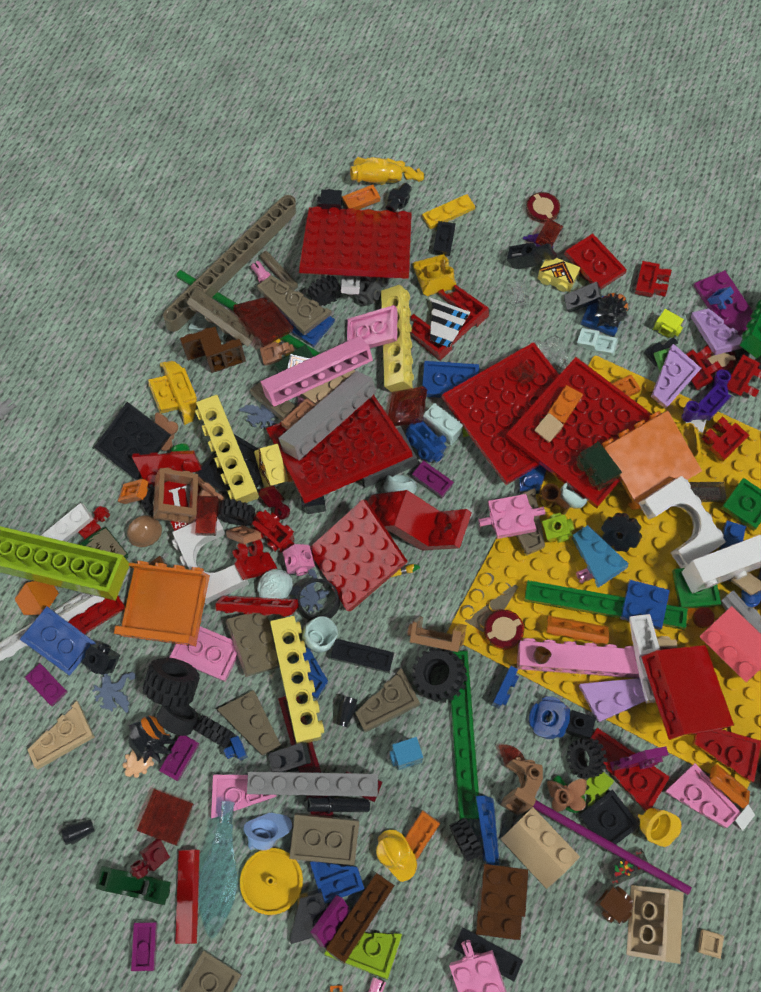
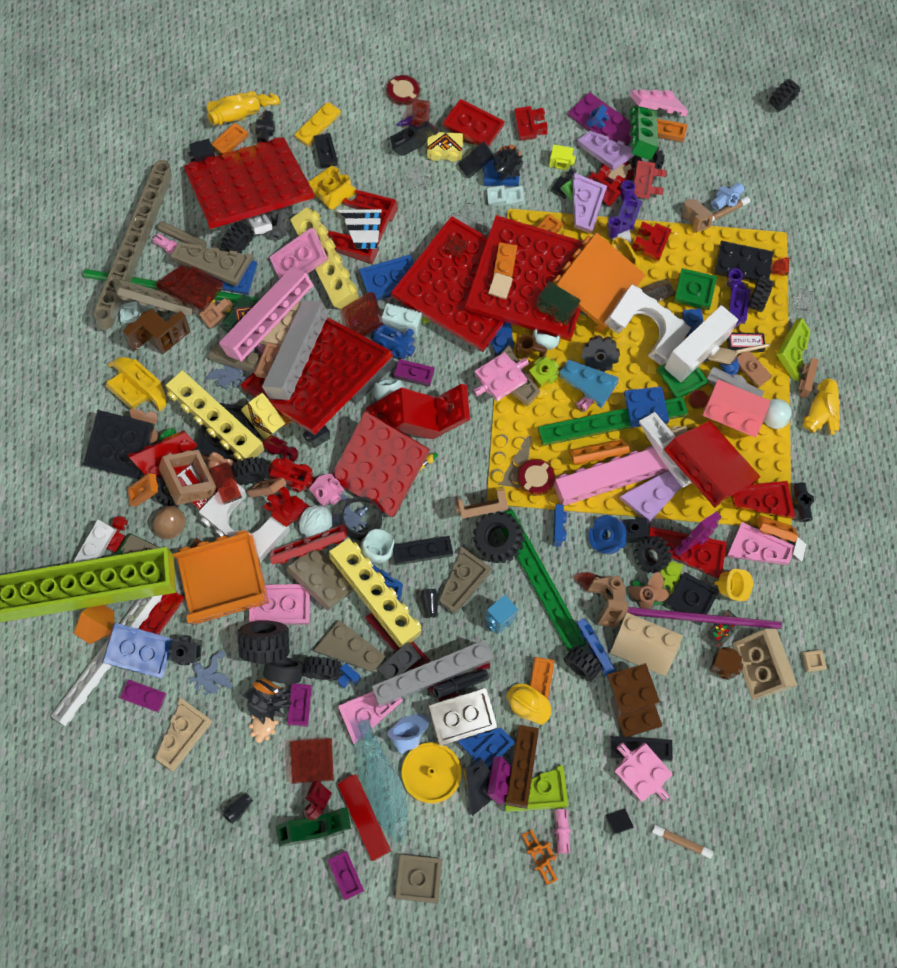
camera: 30 degrees left, 0 degrees up
(541, 655) = (579, 483): reddish brown hinge -> none

